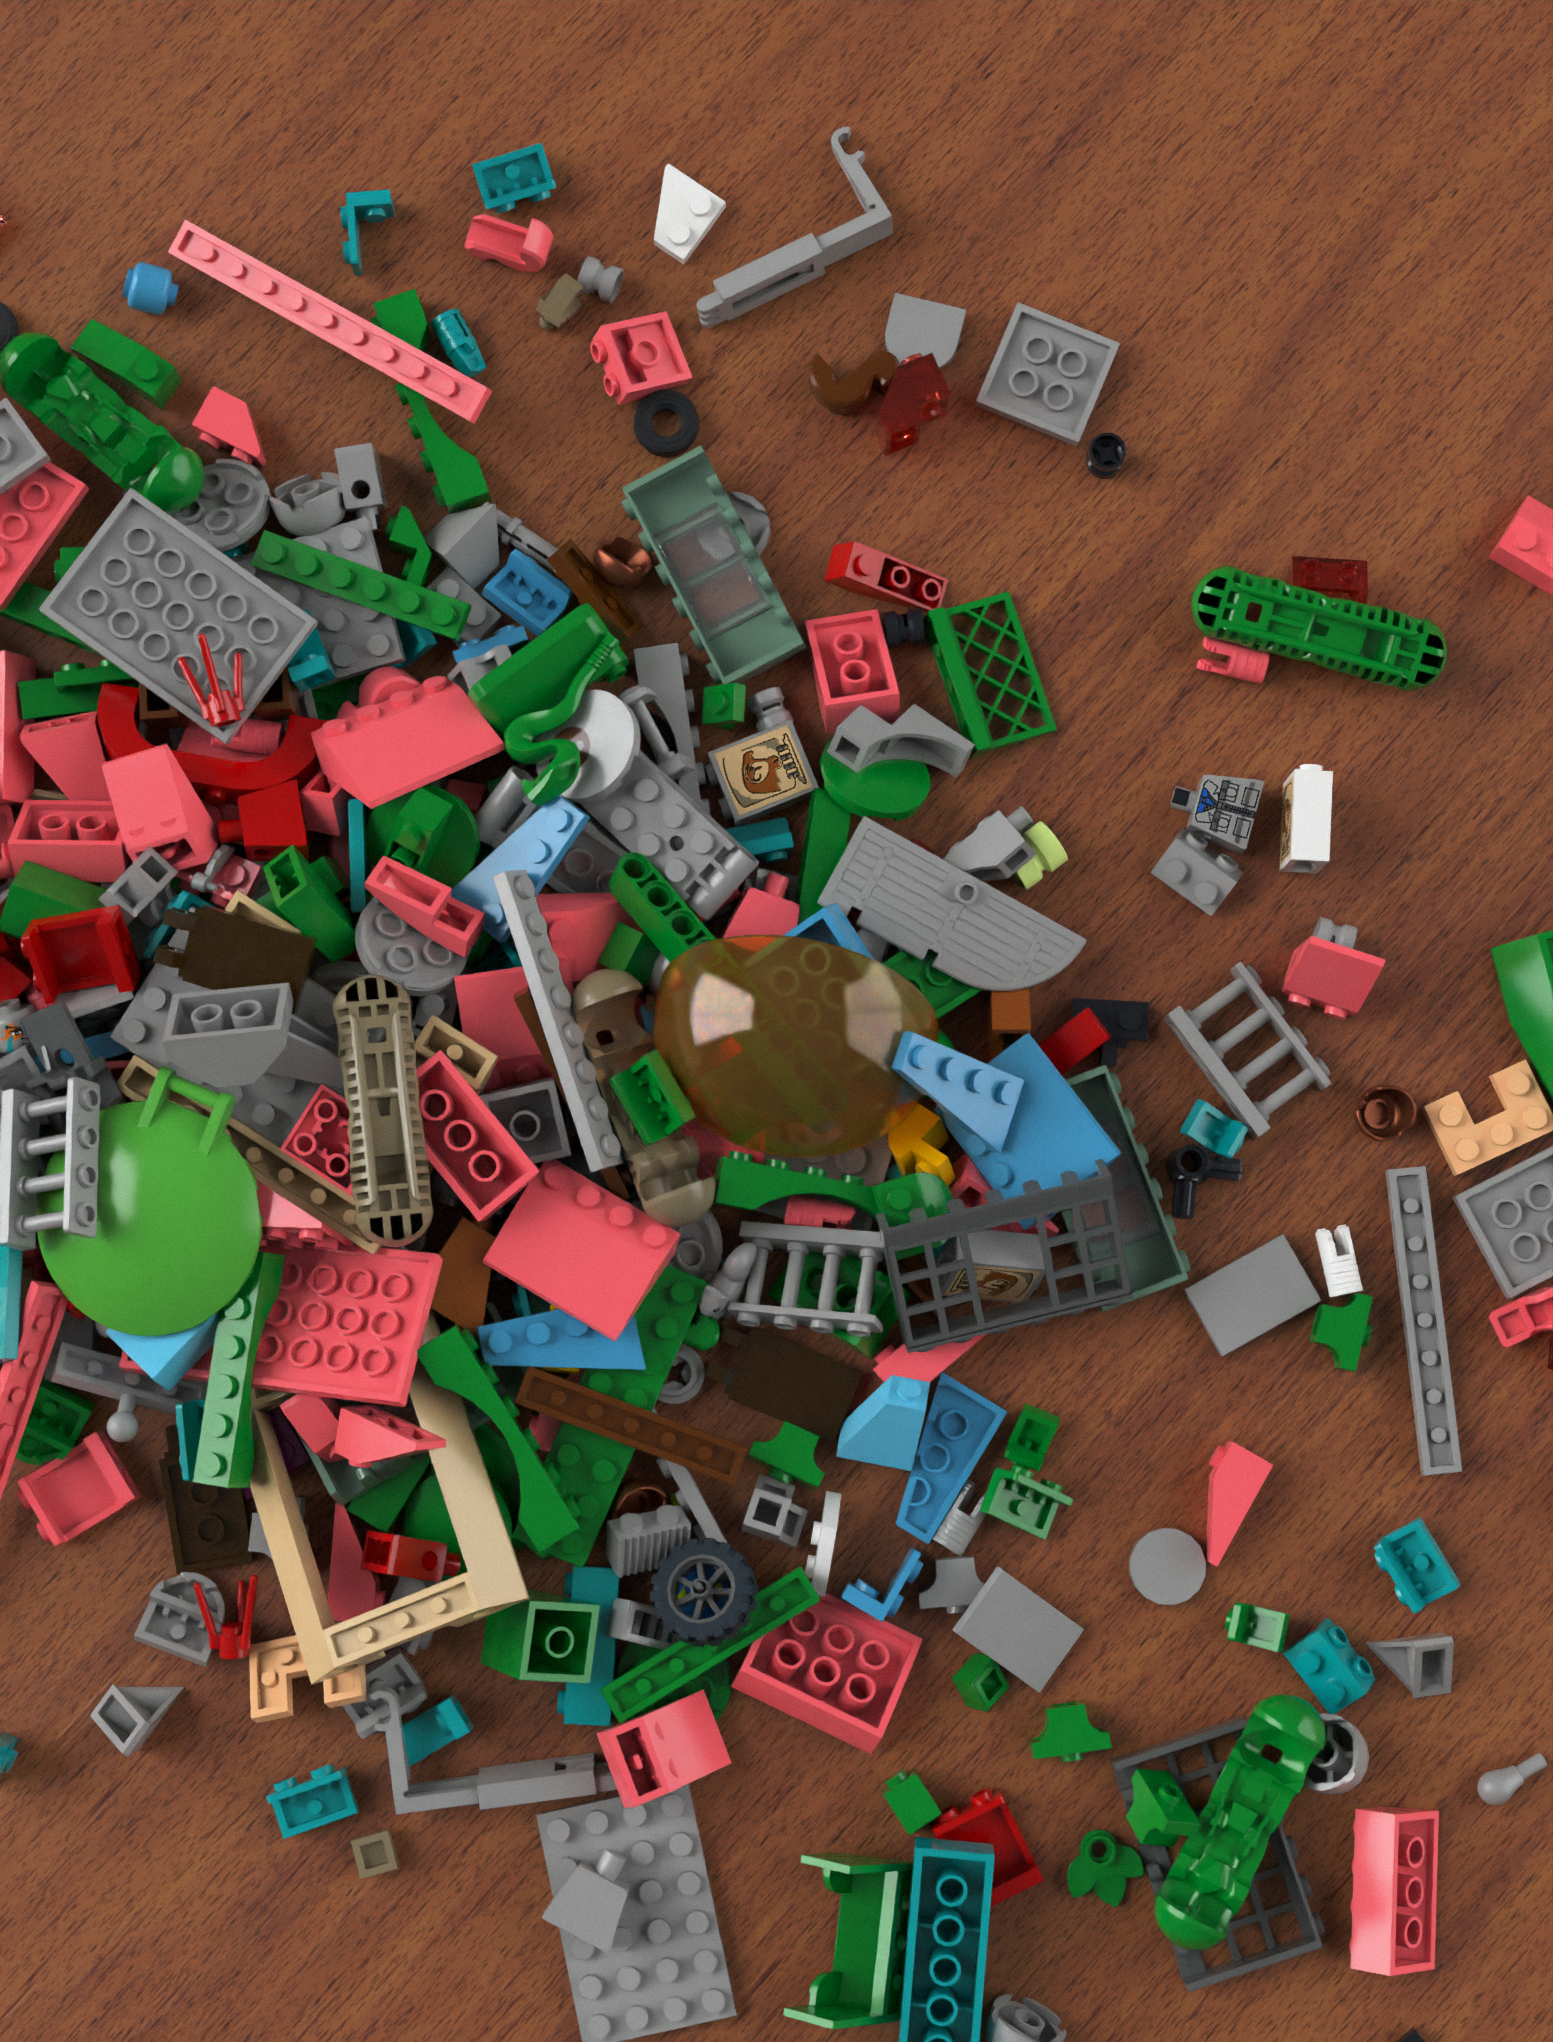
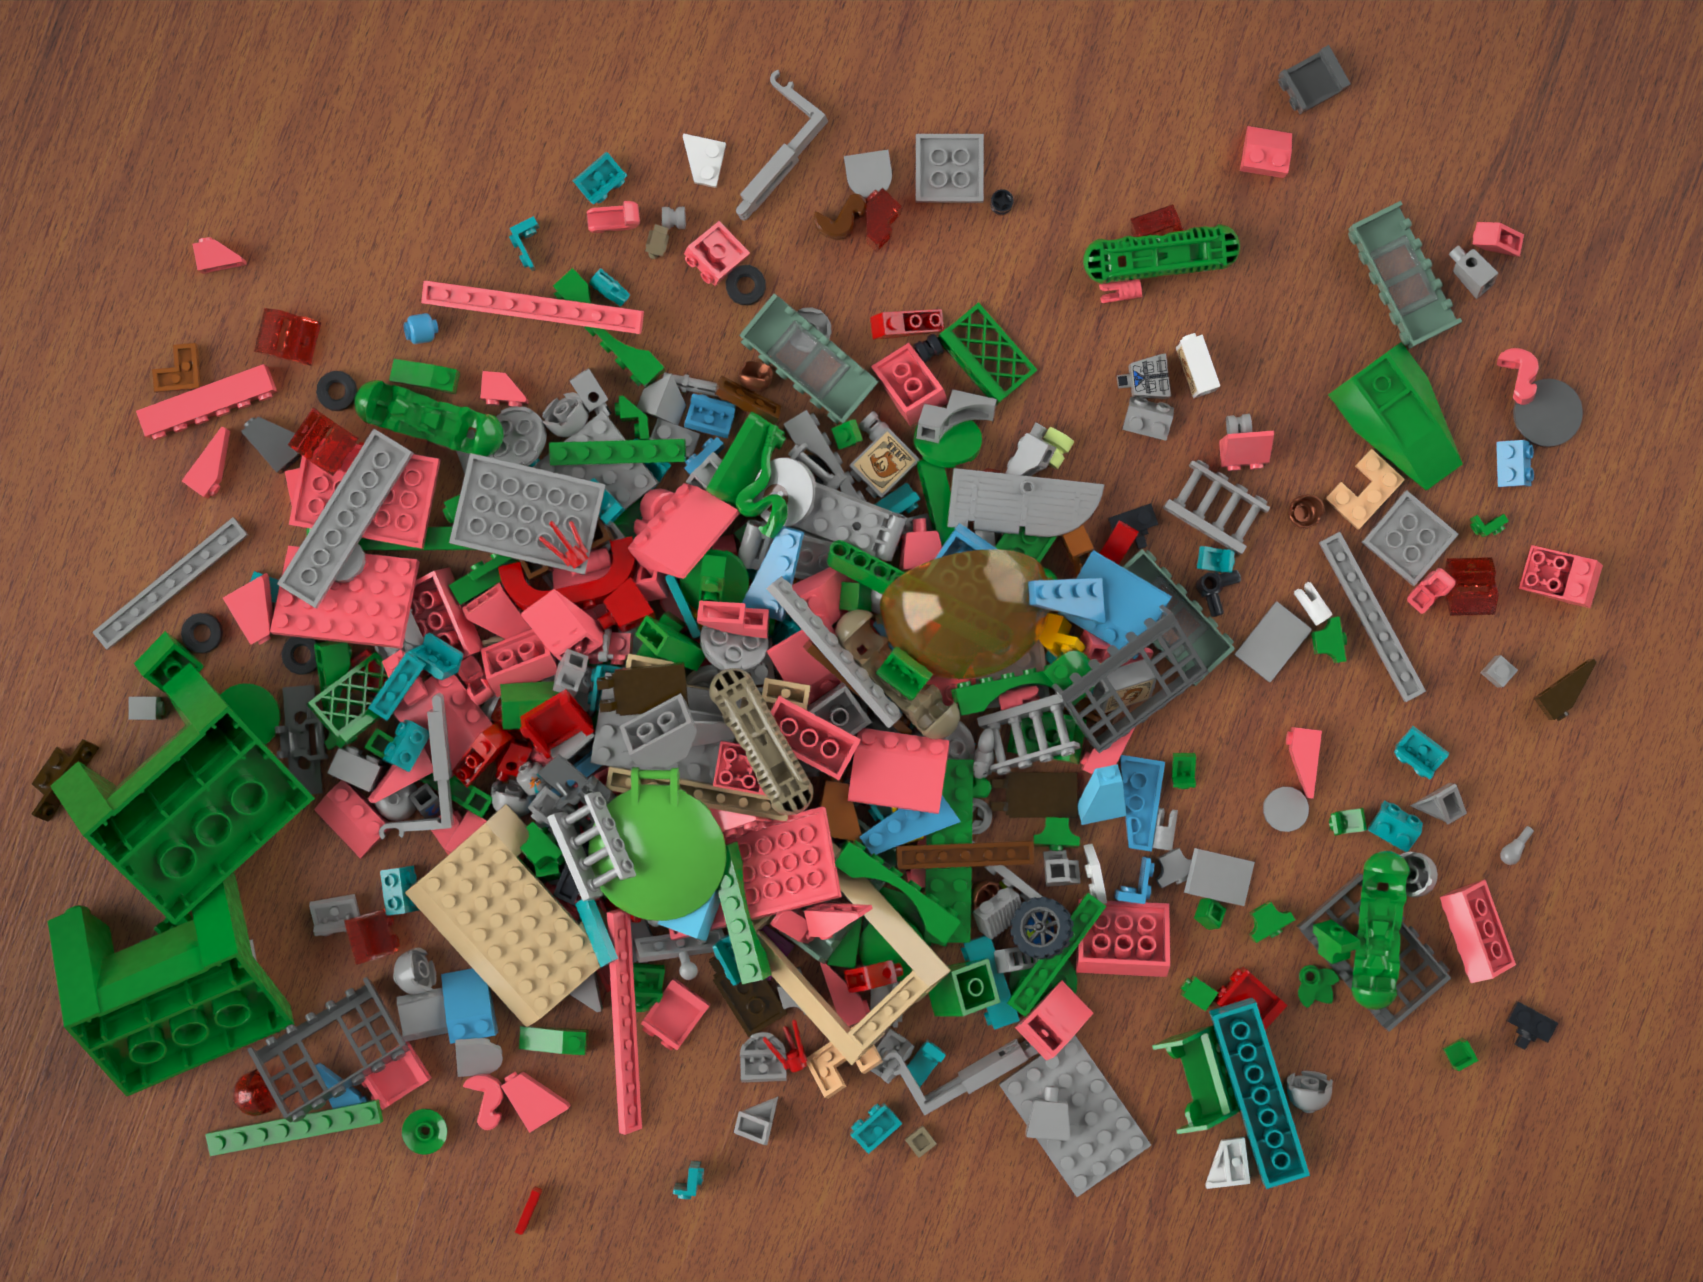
camera: 20 degrees left, 5 degrees up
(1022, 1501) = (1193, 807): green bracket -> none

